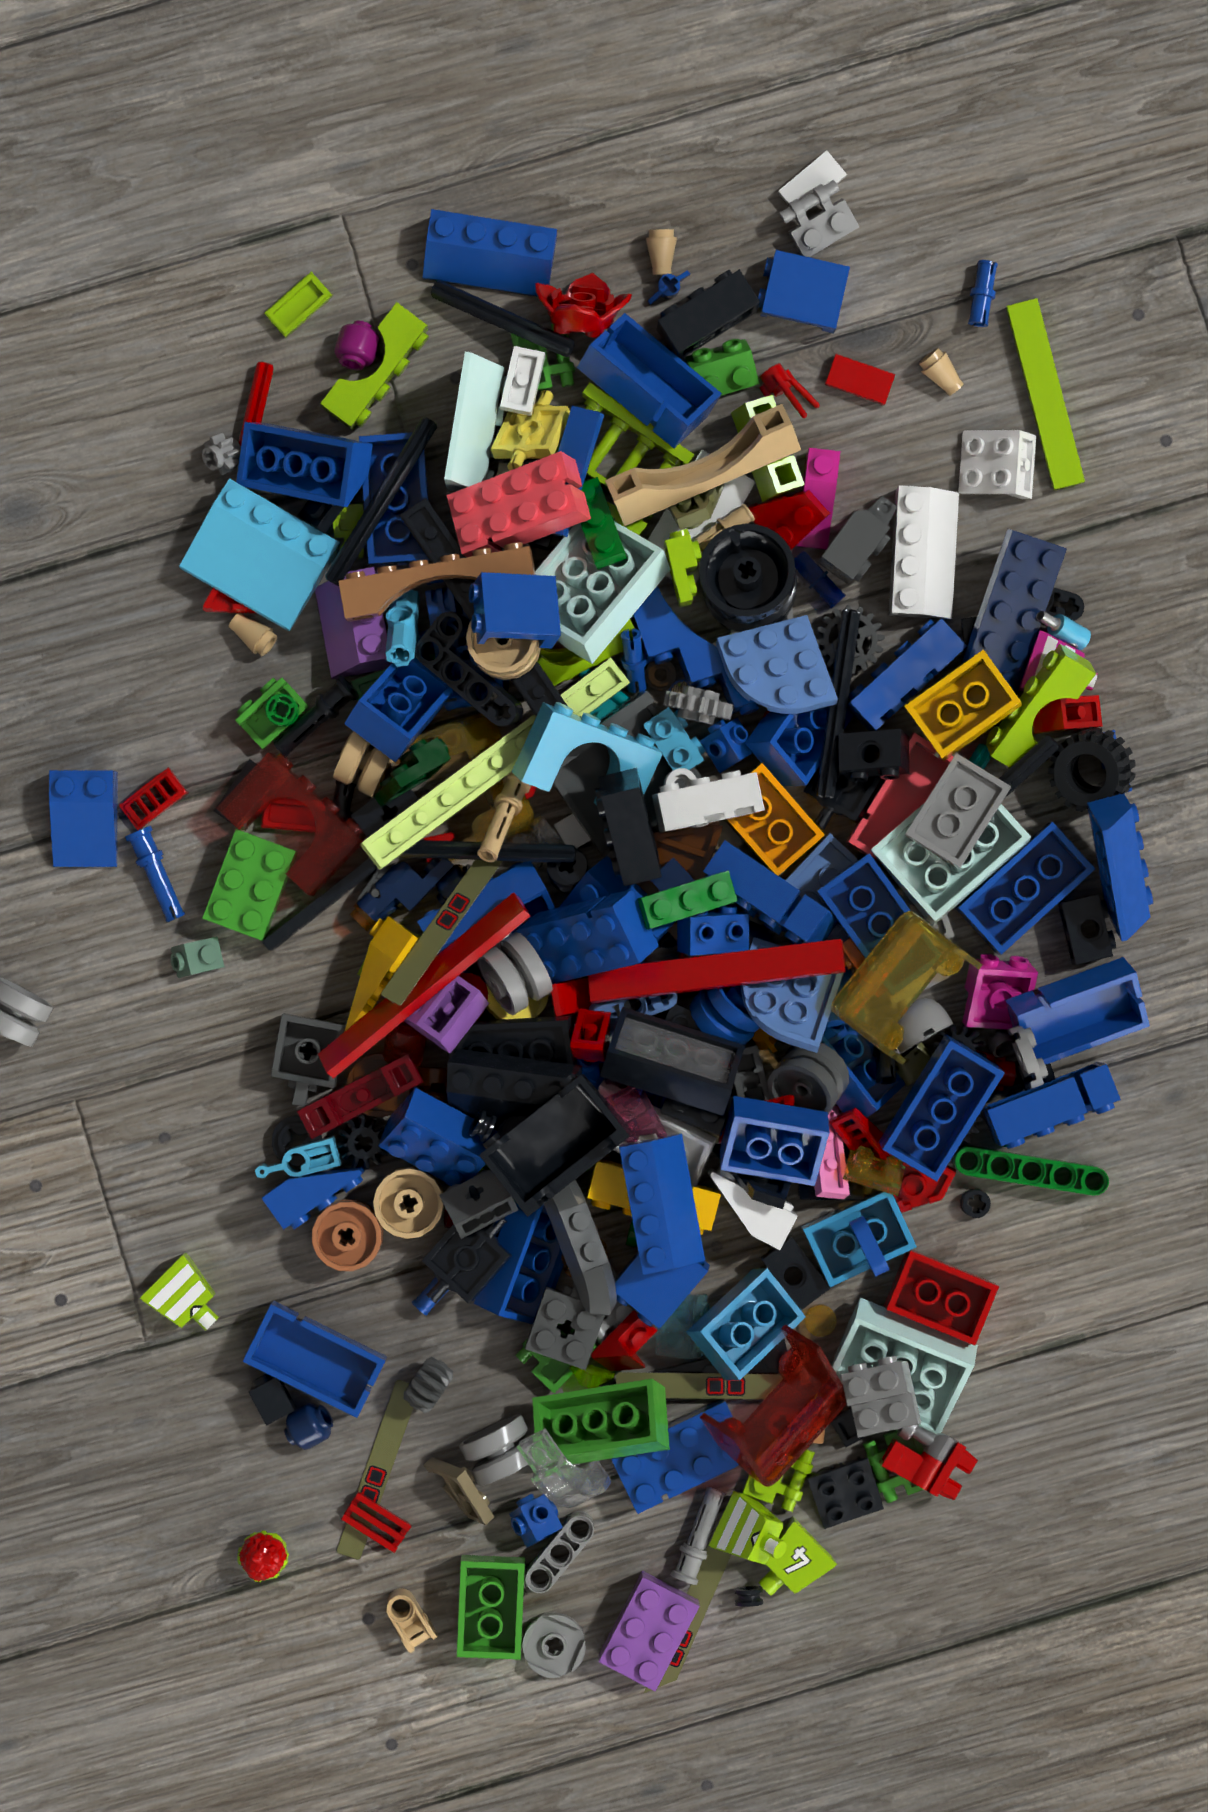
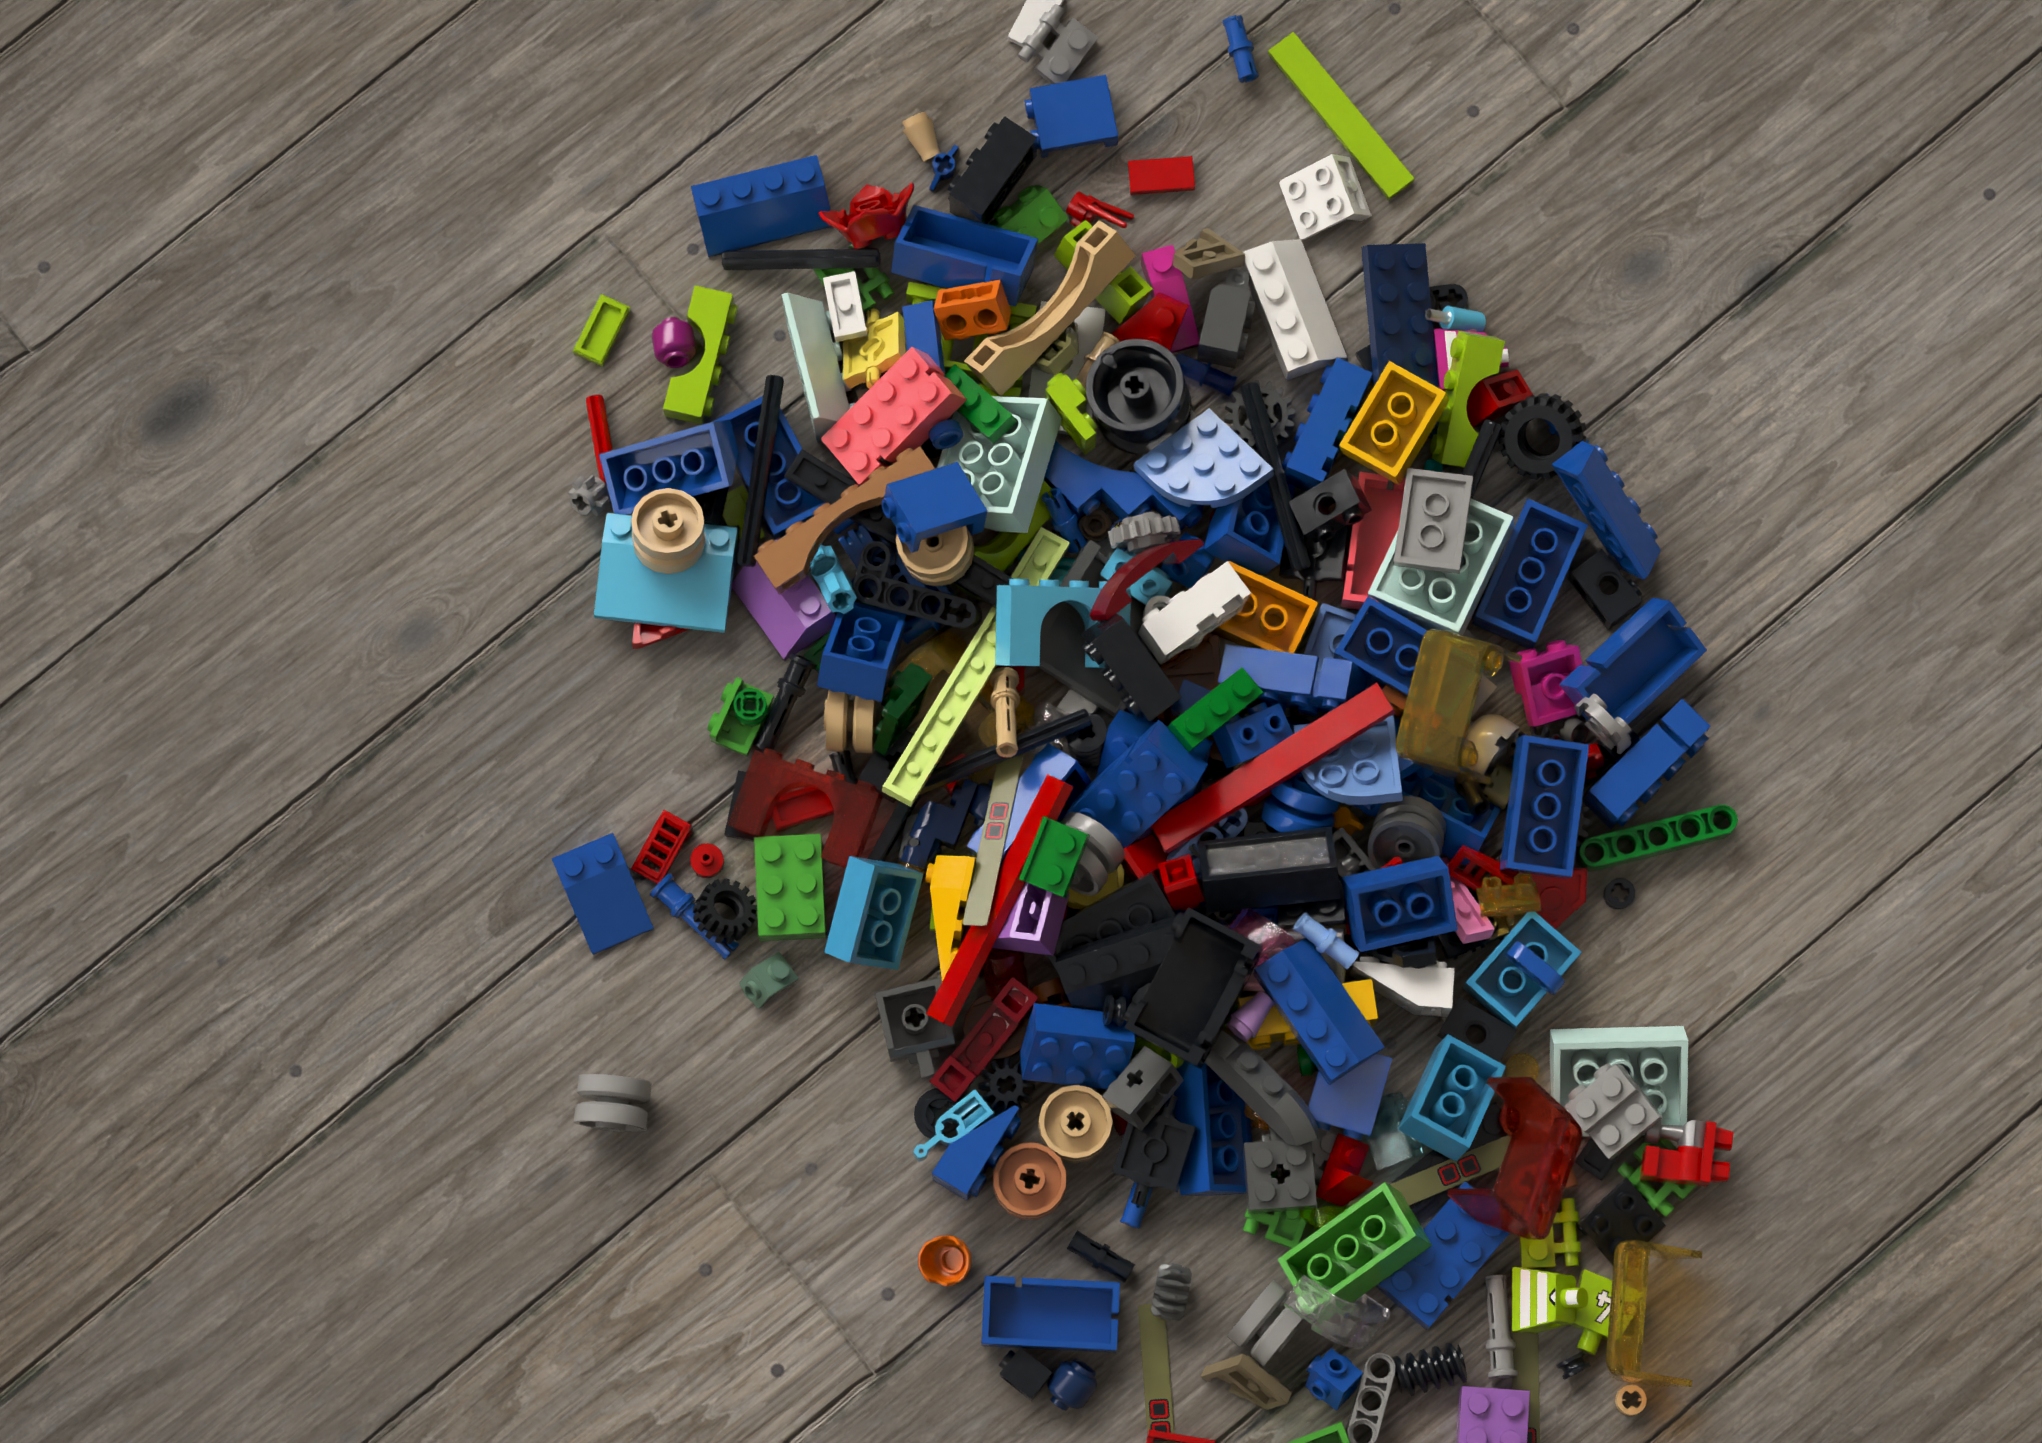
camera: 20 degrees left, 10 degrees down
(167, 888) = (716, 924): none -> black tyre
(182, 1294) = (894, 1310): torso -> none
(196, 830) = (707, 868): none -> red tile
(244, 1271) = (945, 1260): none -> orange hair
(255, 635) = (691, 651): tan cone -> none
(274, 504) = (668, 530): none -> tan wheel
(311, 943) = (873, 913): none -> dark azure brick
(382, 1324) = (1100, 1256): none -> black pin
(486, 972) = (1054, 856): none -> green plate
(559, 541) = (946, 434): none -> blue tile
(599, 1183) = (1249, 1017): none -> lavender cone
(623, 1547) = (1430, 1368): none -> black piece
(633, 436) = (973, 307): none -> orange brick
(642, 756) = (1114, 595): none -> dark red slope
(695, 1145) = (1326, 940): none -> light blue pin
(789, 1636) = (1629, 1389): none -> tan bush
(815, 1578) = (1628, 1311): none -> clear yellow windscreen
(866, 475) = (1207, 256): none -> dark tan wing
(941, 371) = (1234, 135): tan cone -> none
(941, 1296) = (1626, 992): red brick -> none

